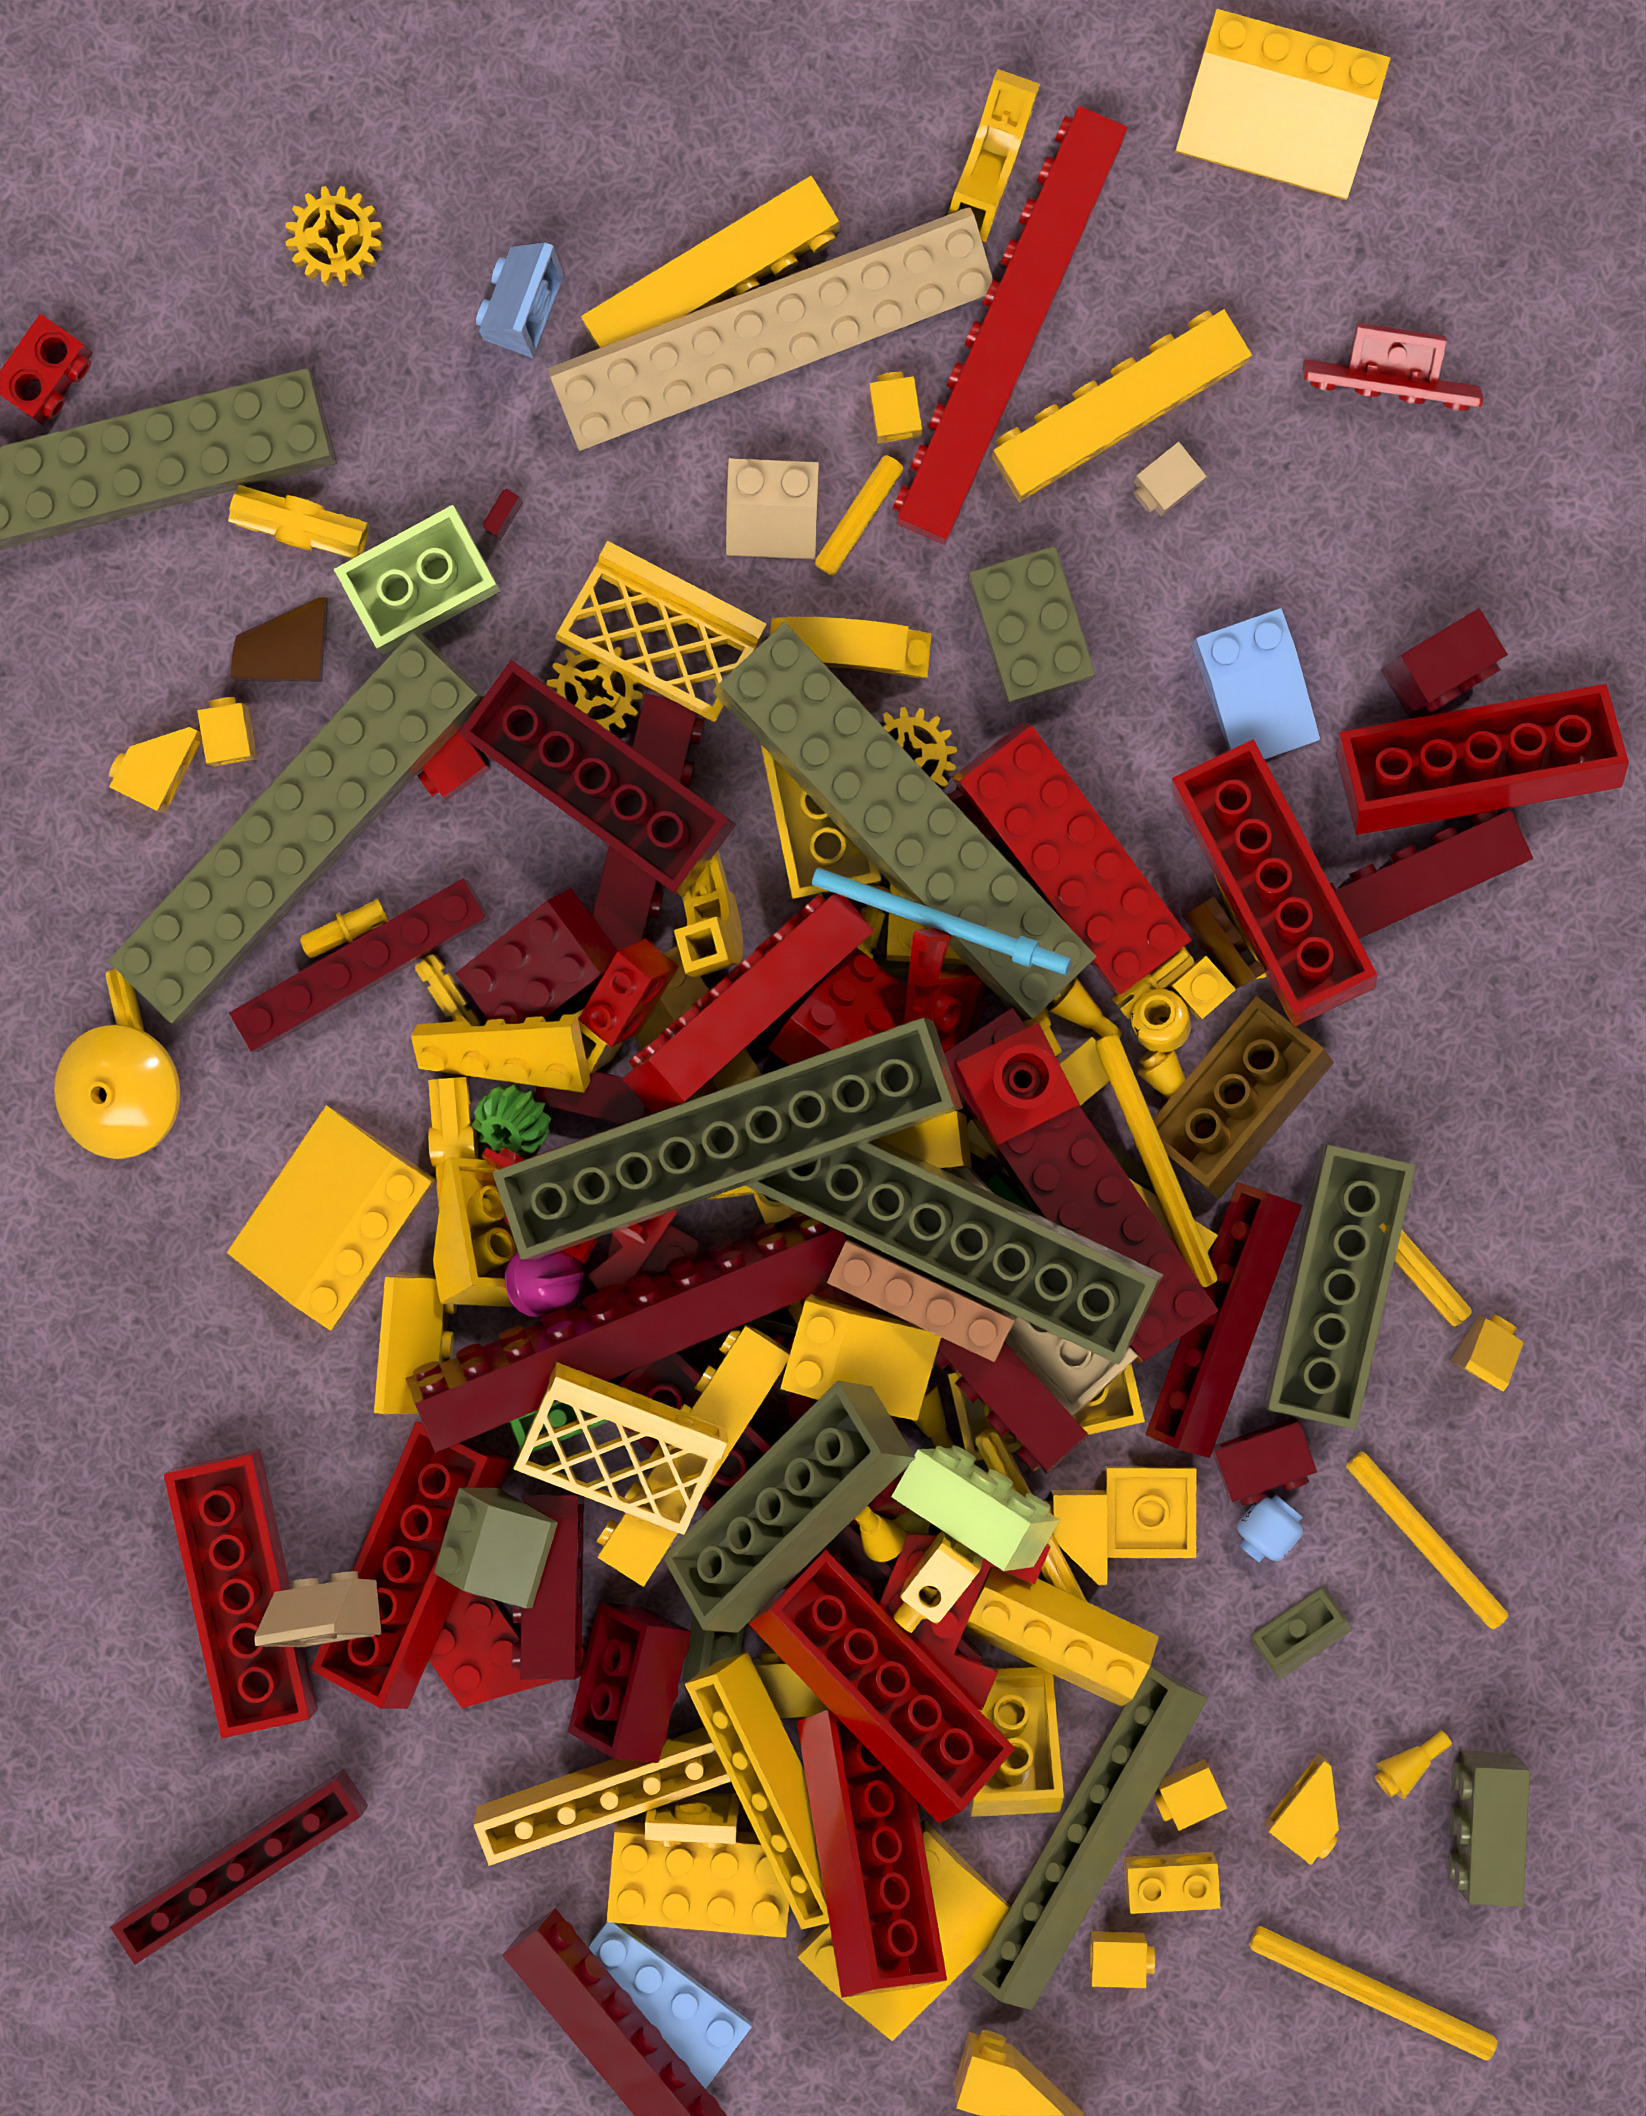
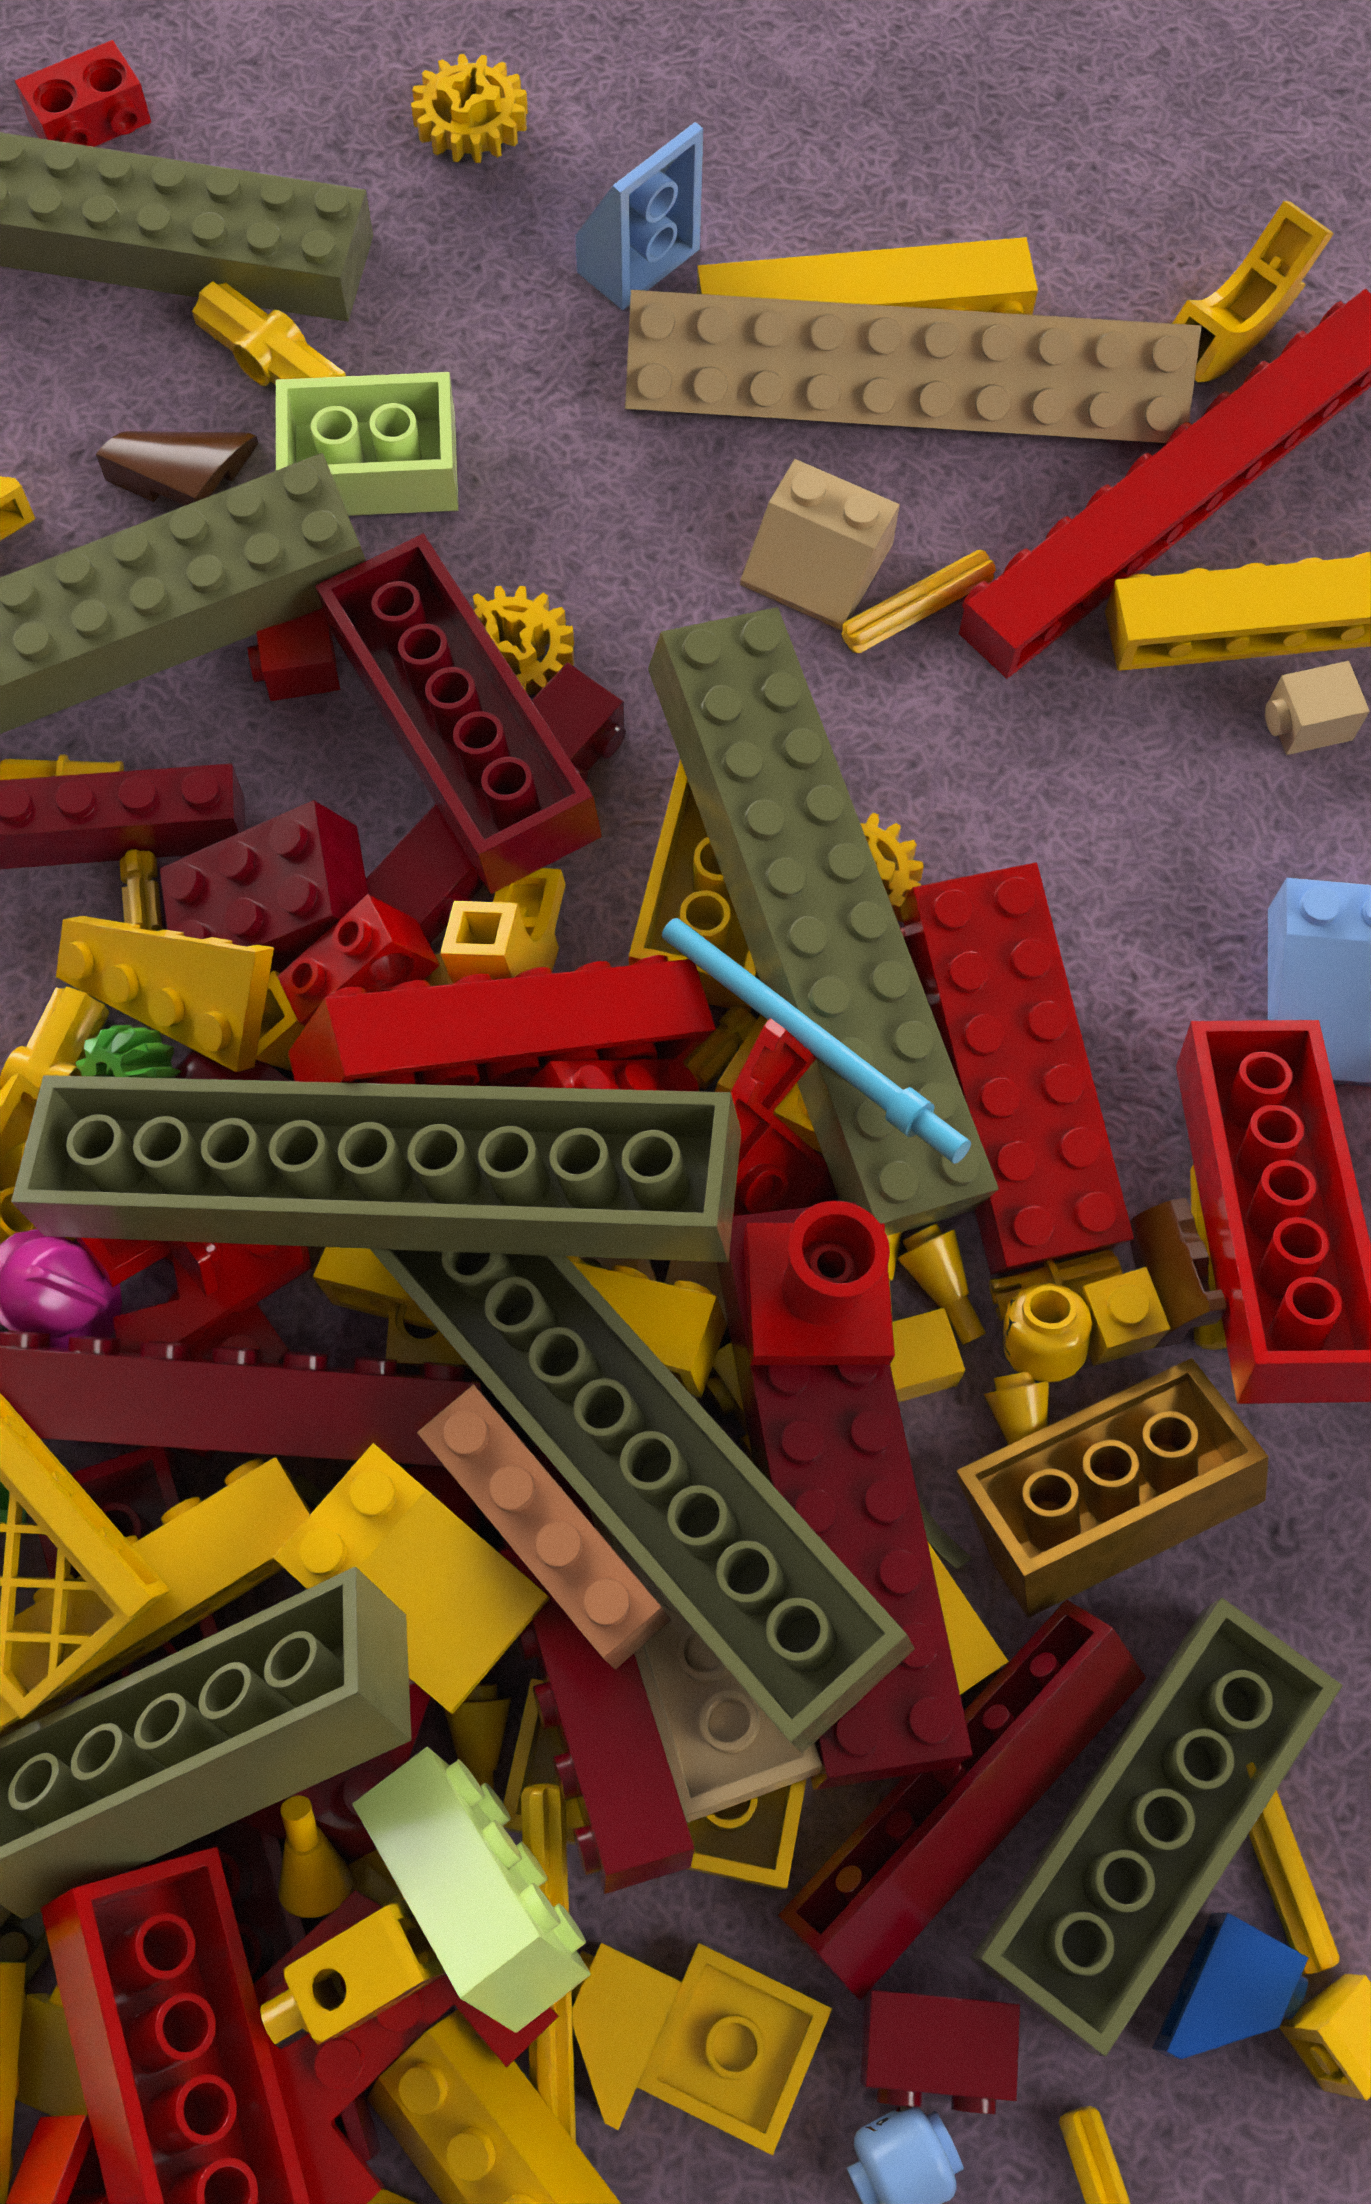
camera: 25 degrees right, 20 degrees down
(227, 732) = (55, 512): yellow brick -> none
(502, 514) = (503, 428): dark red tile -> none
(670, 596) = (636, 563): yellow fence -> none
(863, 644) = (873, 724): yellow arch -> none
(895, 407) = (1013, 505): yellow brick -> none
(1031, 626) = (1079, 791): olive brick -> none
(1155, 1158) = (965, 1506): yellow axle -> none
(1415, 1356) = (1232, 1989): none -> blue slope

